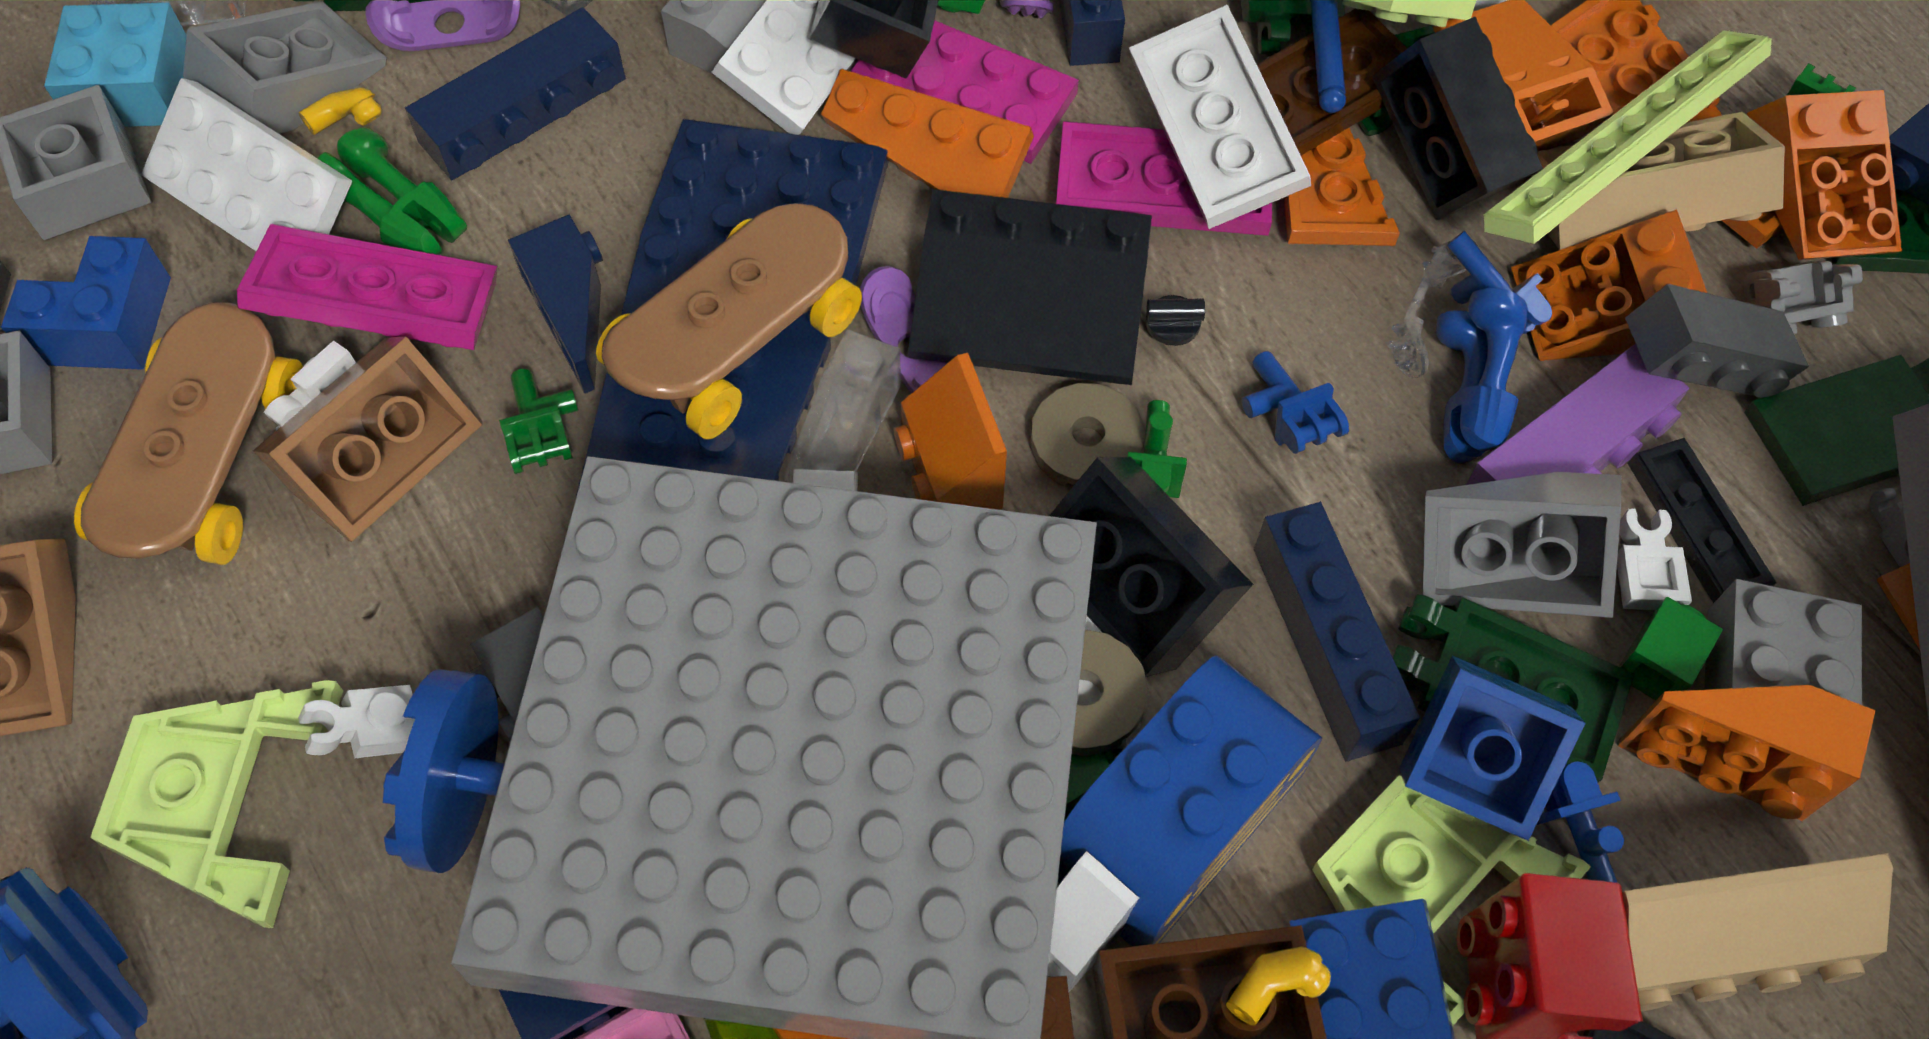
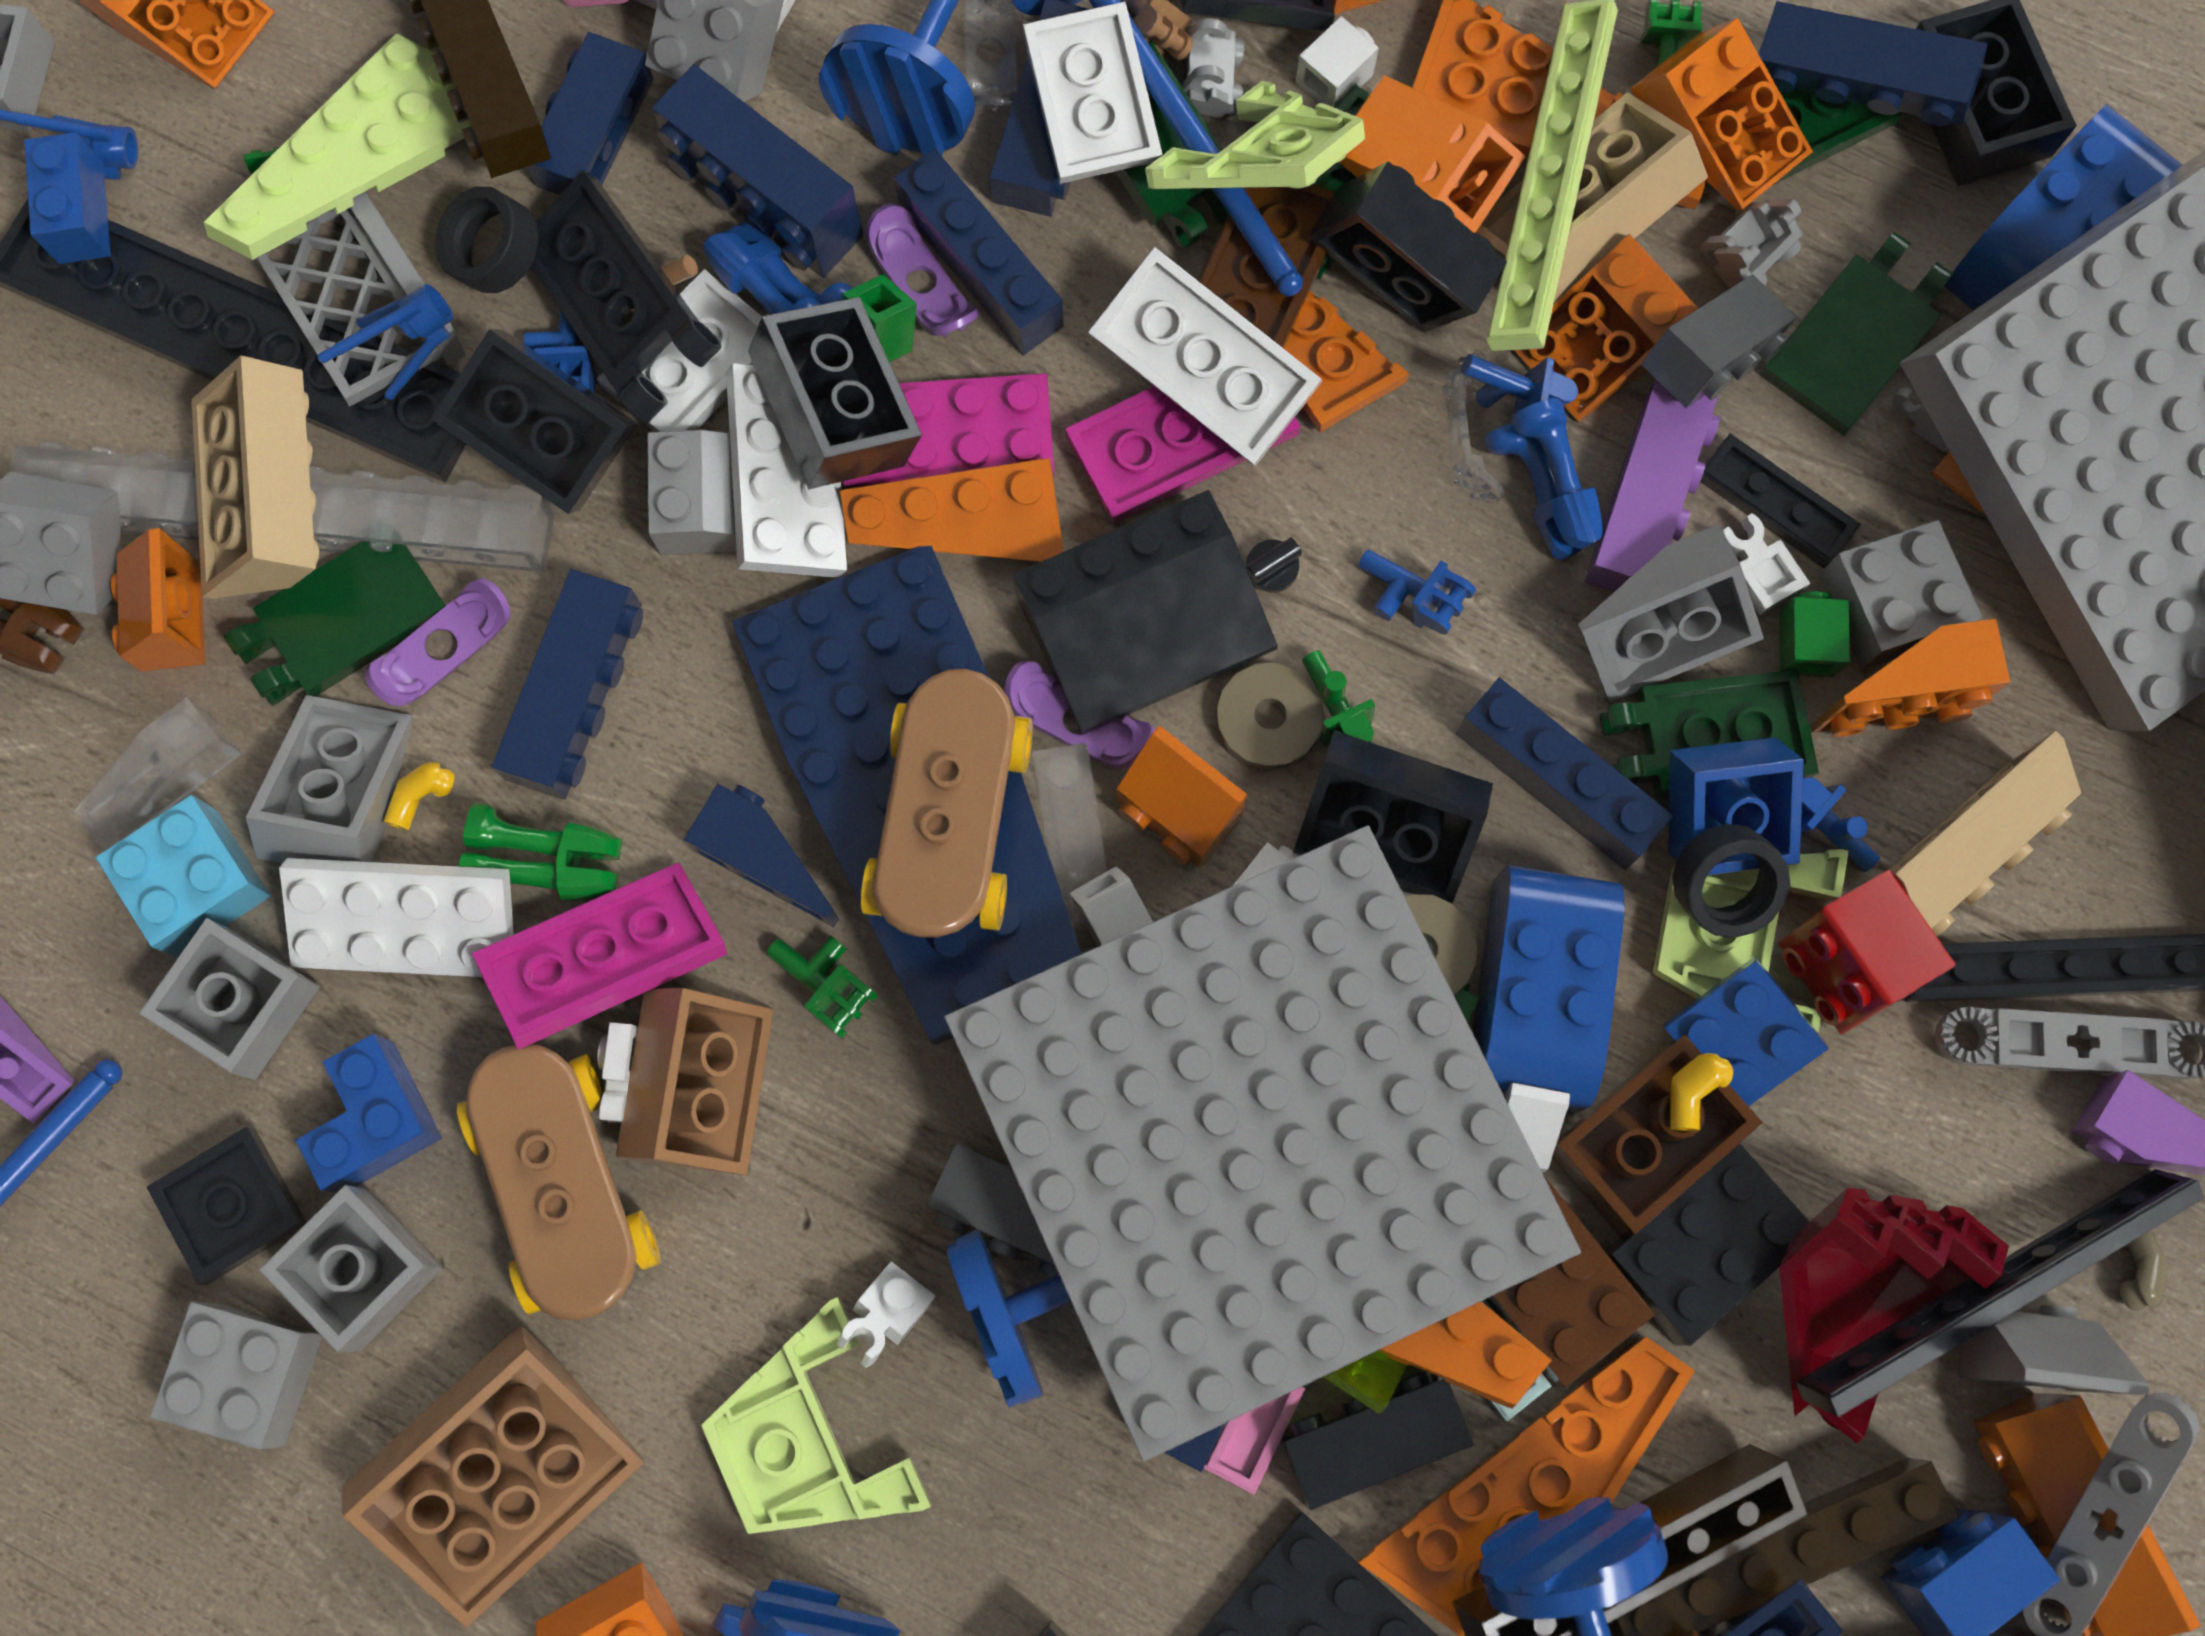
camera: 30 degrees left, 15 degrees up
(1447, 857) = (1750, 912): none -> black tyre

